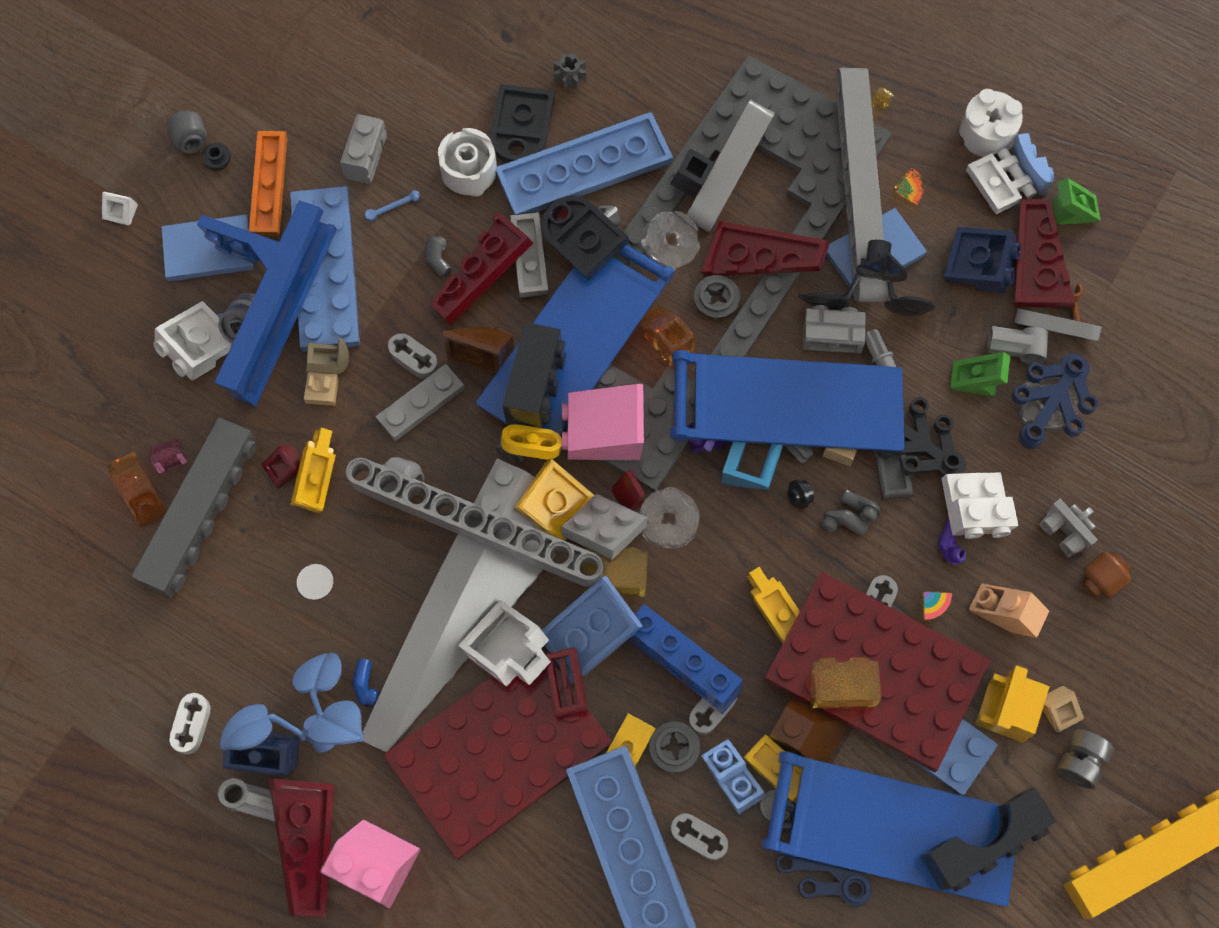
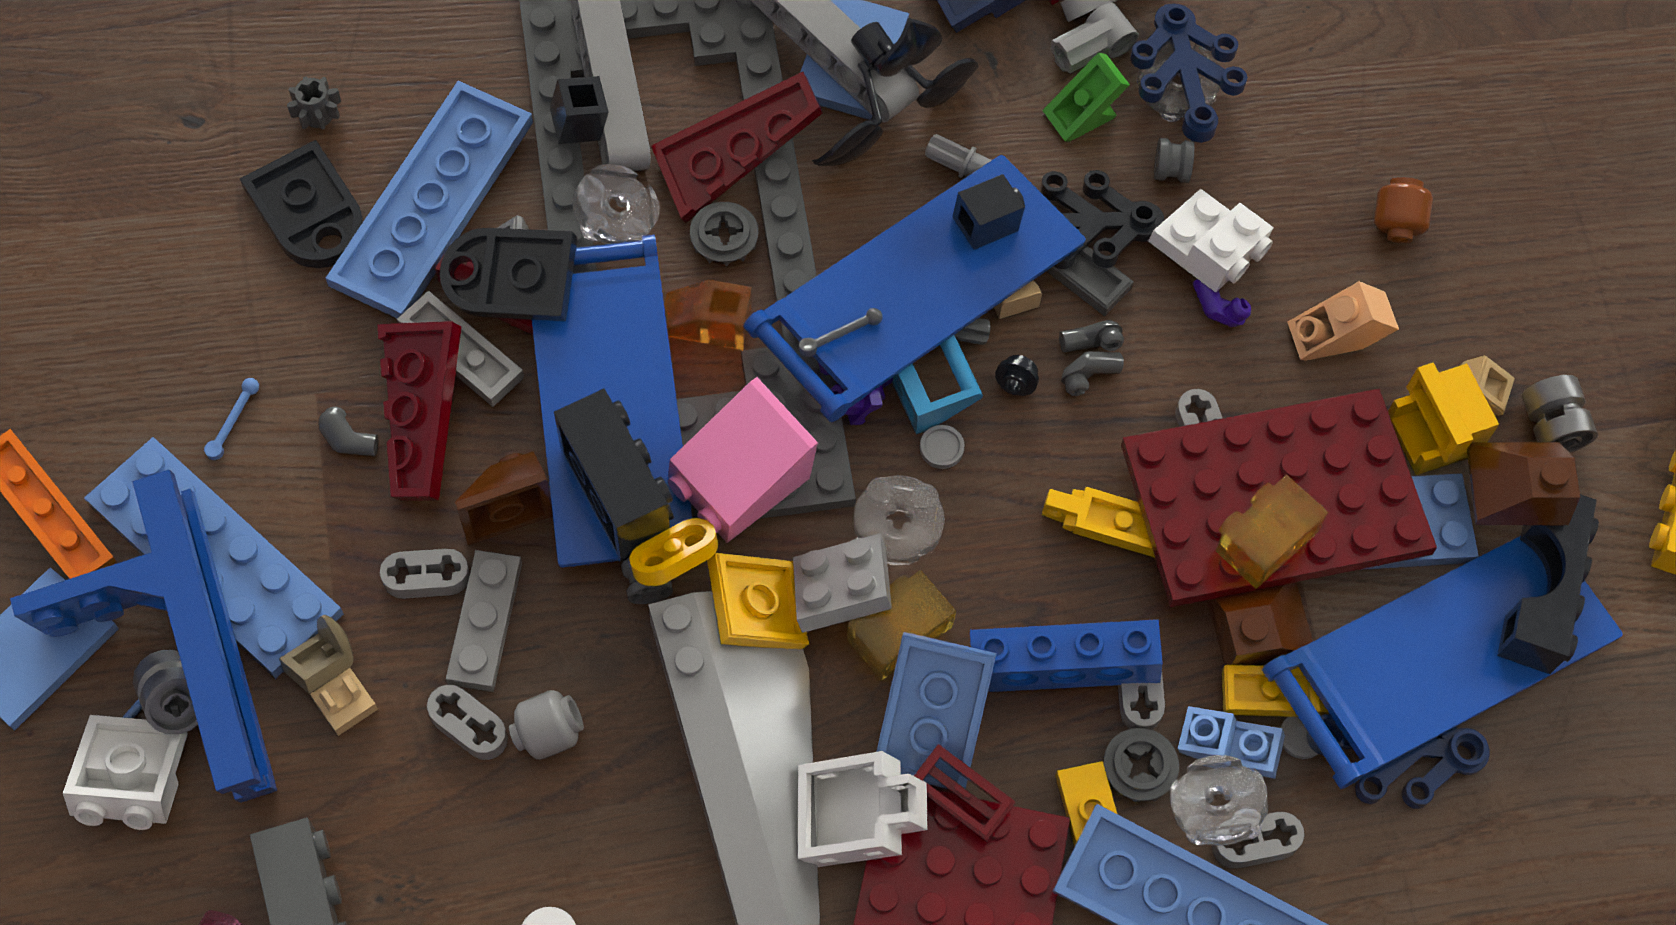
camera: 45 degrees left, 5 degrees down
(282, 464) = (380, 830): dark red slope -> none
(314, 472) = (431, 804): yellow hinge -> none
(363, 149) = (136, 376): light grey brick -> none
(374, 445) = (473, 713): none -> light grey beam
(463, 511) = (679, 712): light grey beam -> none
(467, 162) = (287, 294): white brick -> none
(629, 491) = (827, 523): dark red slope -> none
(688, 815) = (1223, 824): none -> clear plate
(693, 390) = (809, 346): none -> dark grey hinge
(727, 499) = (942, 446): none -> light grey piece
(834, 330) = (889, 170): light grey brick -> none
(859, 393) = (989, 211): none -> black brick
(934, 604) = (1262, 382): tile -> none
(999, 445) = (1174, 160): none -> dark grey wheel
(1017, 775) = (1522, 483): none -> reddish brown slope
(1073, 524) = (1322, 186): light grey hips -> none

